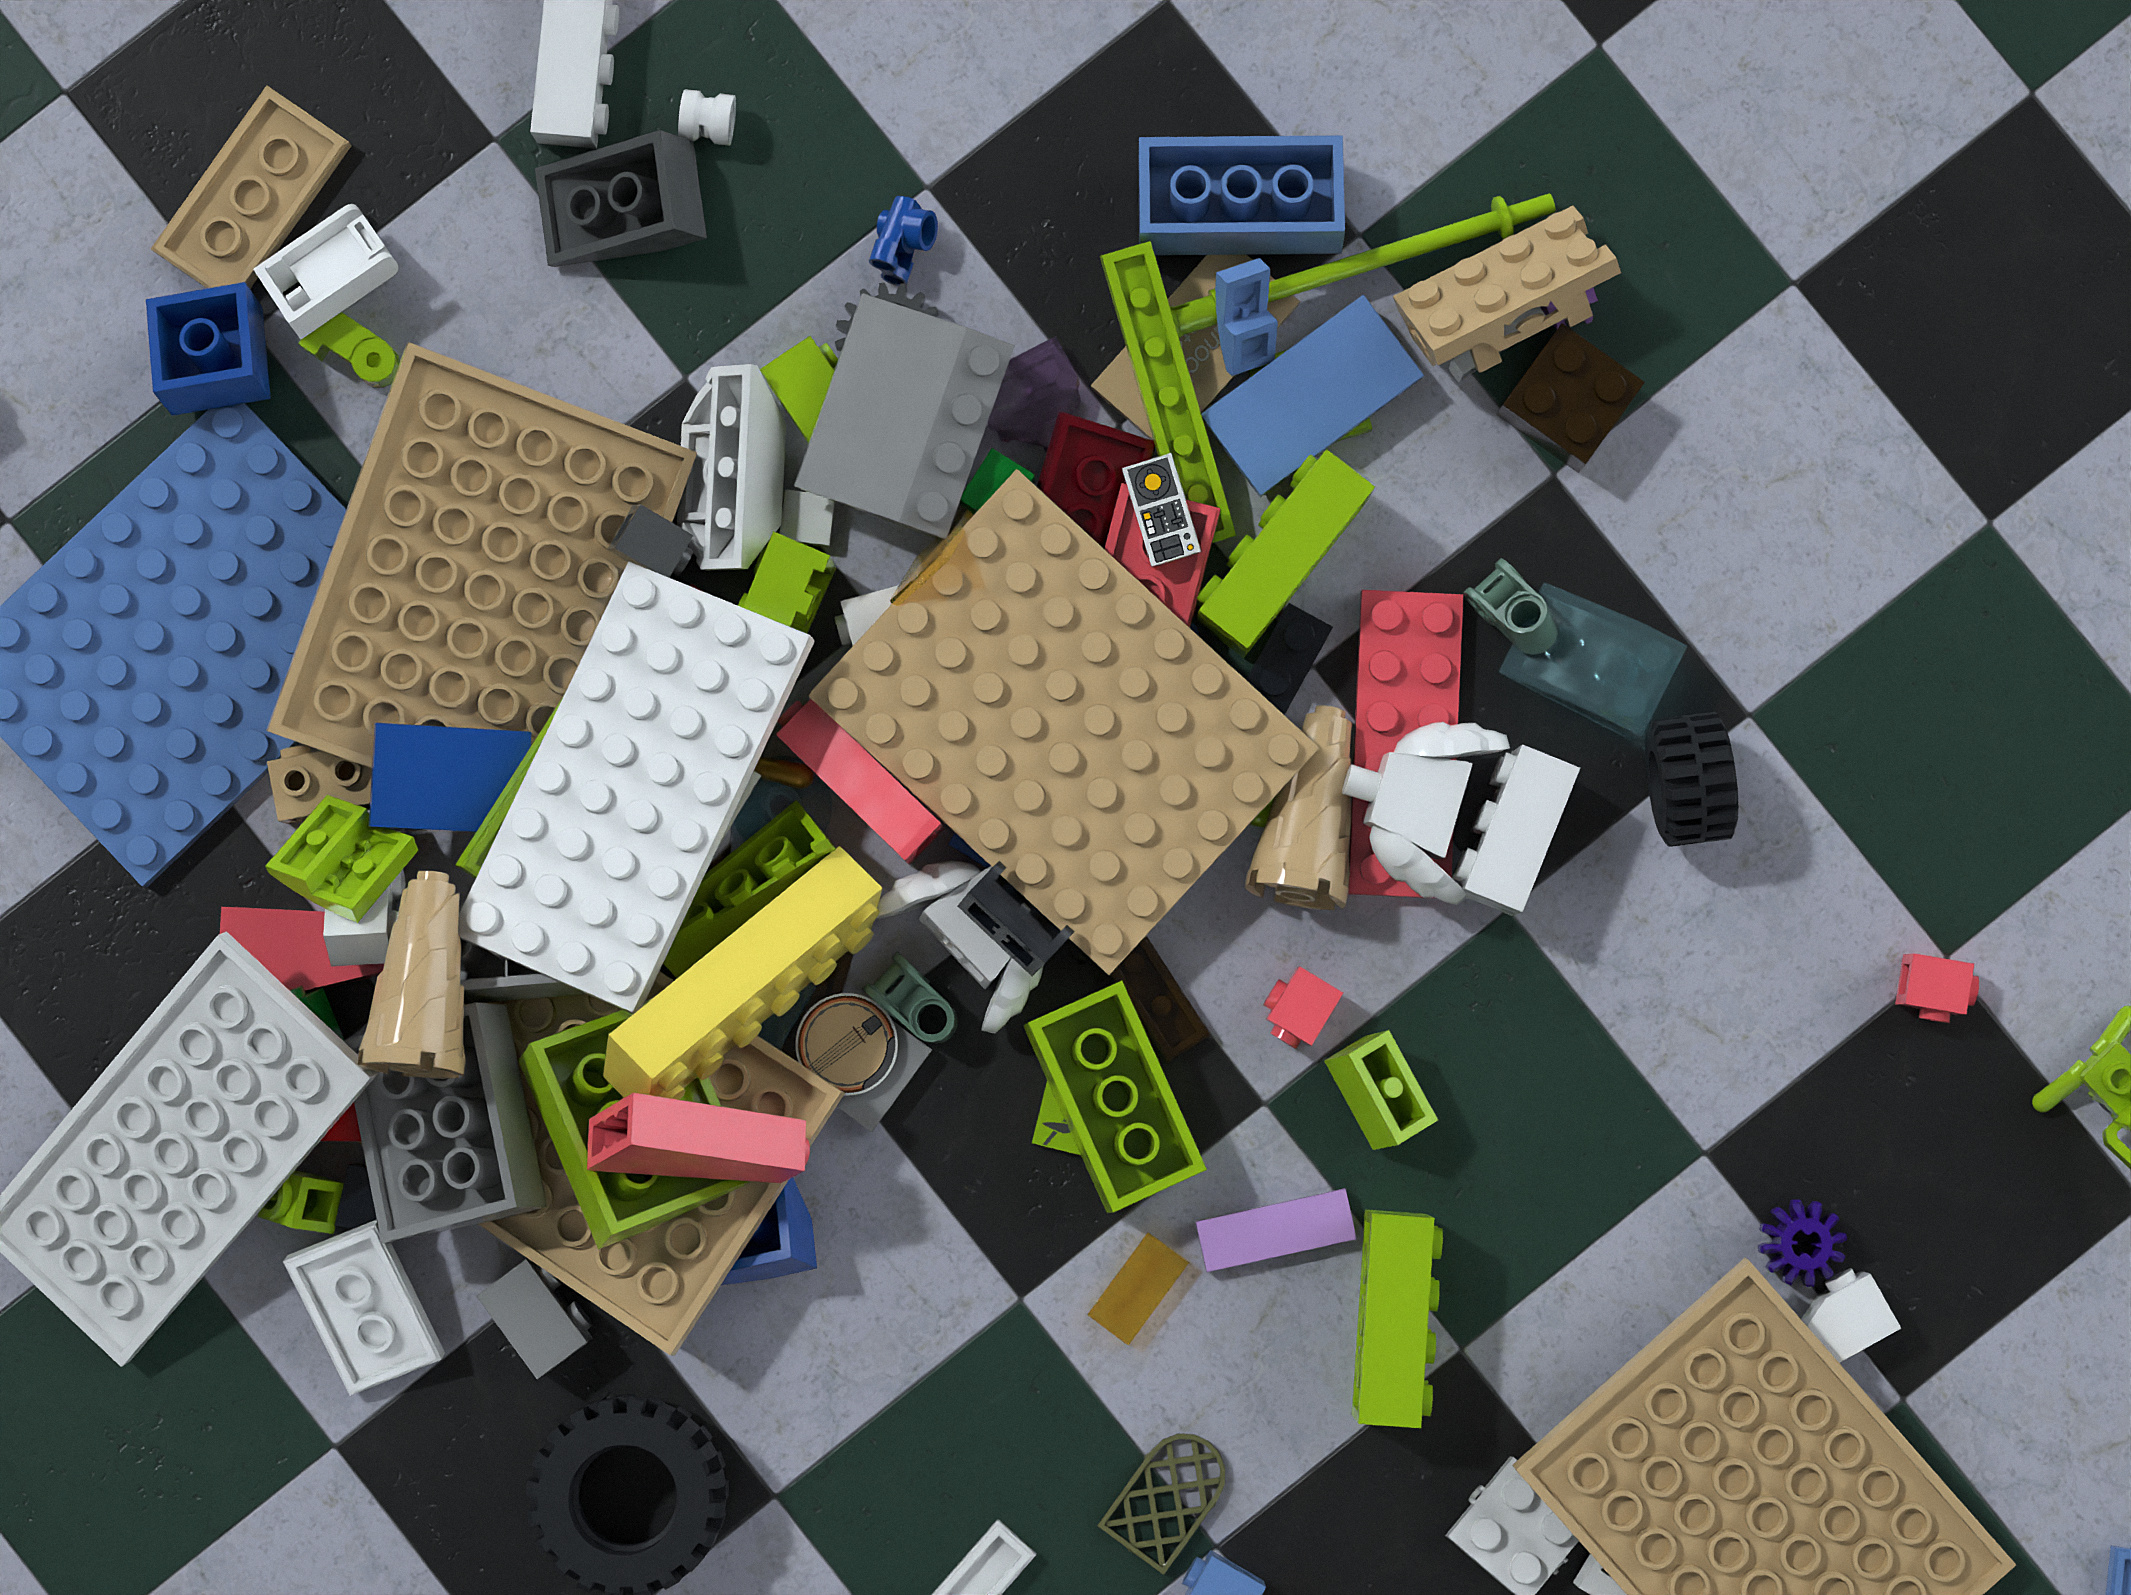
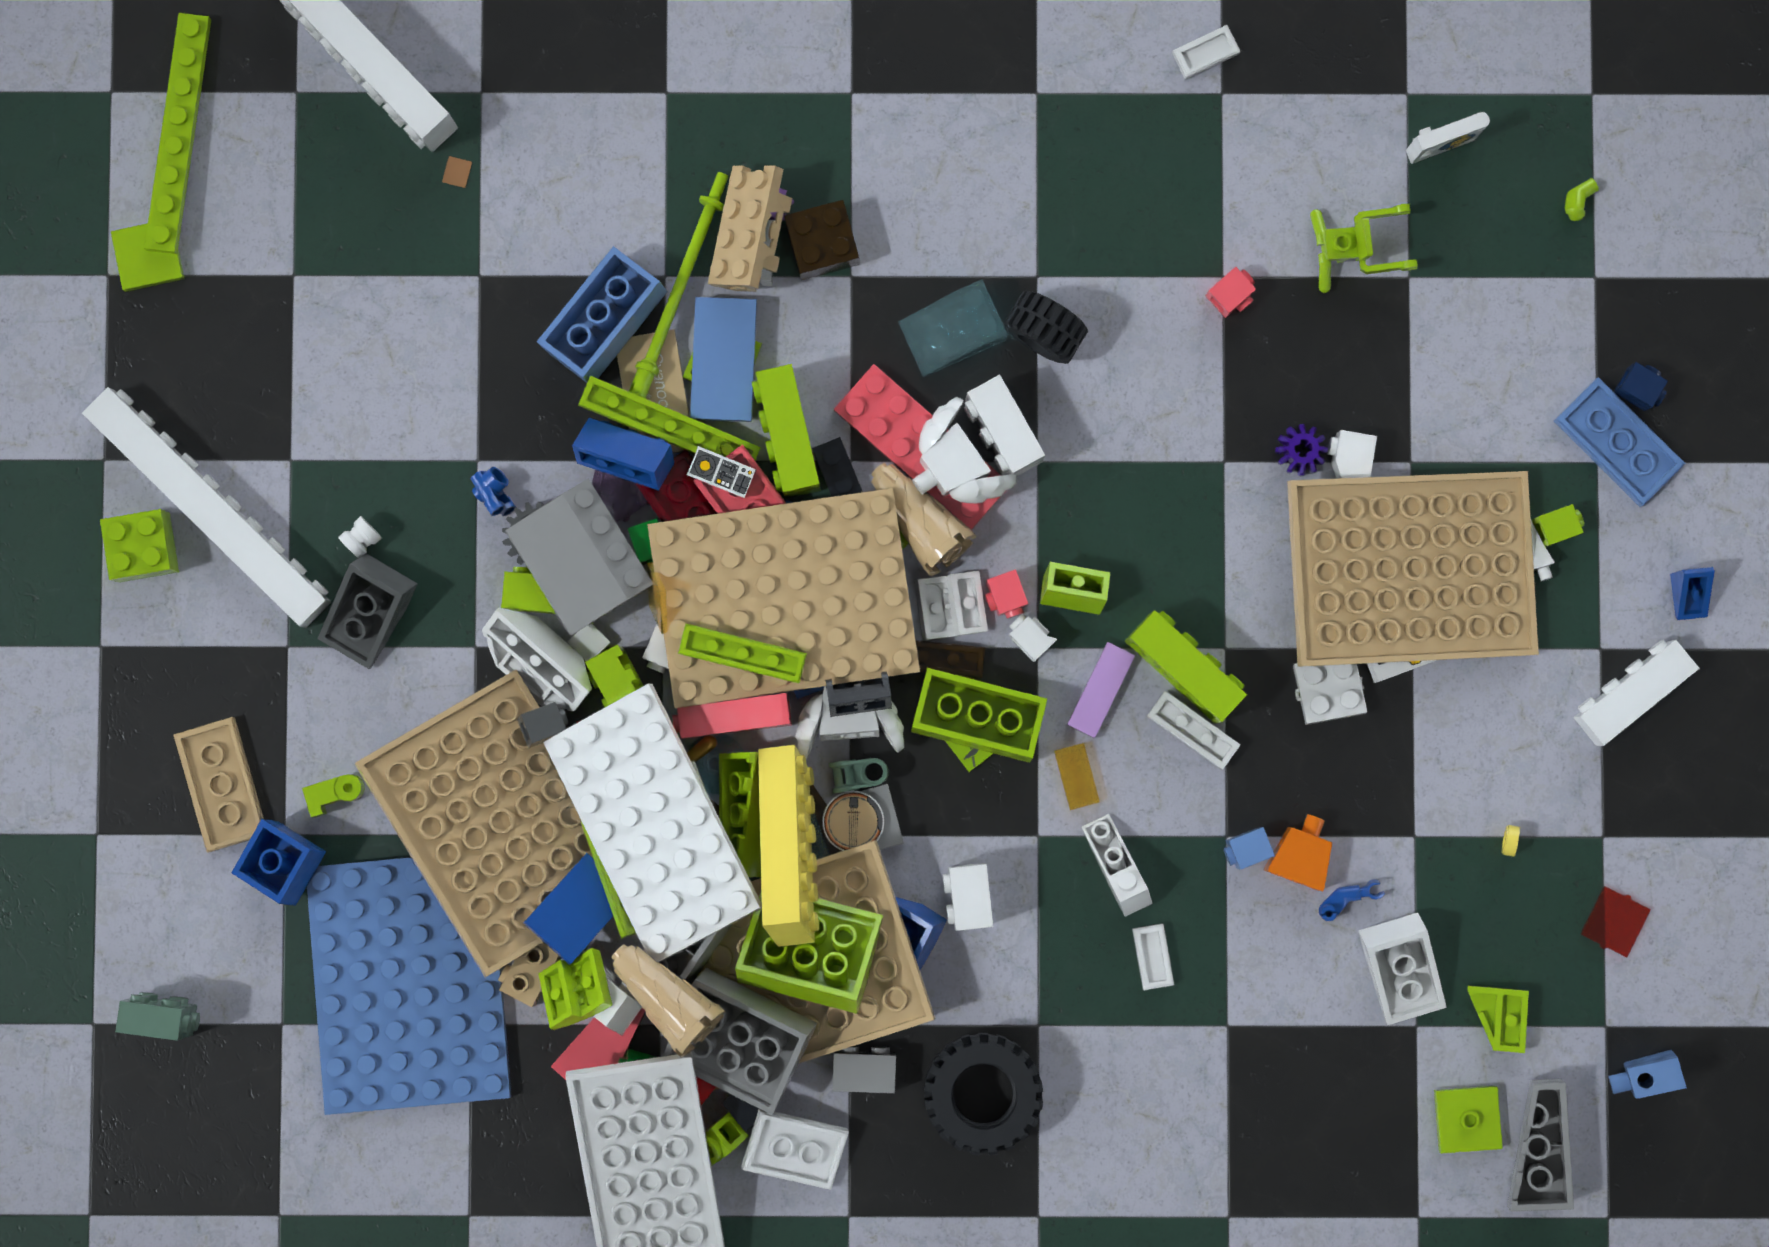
camera: 55 degrees left, 0 degrees up
(333, 264) = (286, 770): white container -> none
(695, 1141) = (843, 926): coral slope -> none
(868, 1274) = (968, 896): none -> white brick
(947, 725) = (742, 653): none -> lime tile
(1064, 1433) = (1117, 865): none -> white slope
(1085, 365) = (623, 453): none -> blue brick
(1125, 1494) = (1162, 838): olive window -> none
(1229, 946) = (951, 605): none -> white slope
(1243, 321) = (664, 363): medium blue slope -> none
(1271, 1083) = (1030, 636): none -> white window
(1320, 1393) = (1193, 730): none -> white plate
(1507, 603) = (894, 345): sand green piece -> none

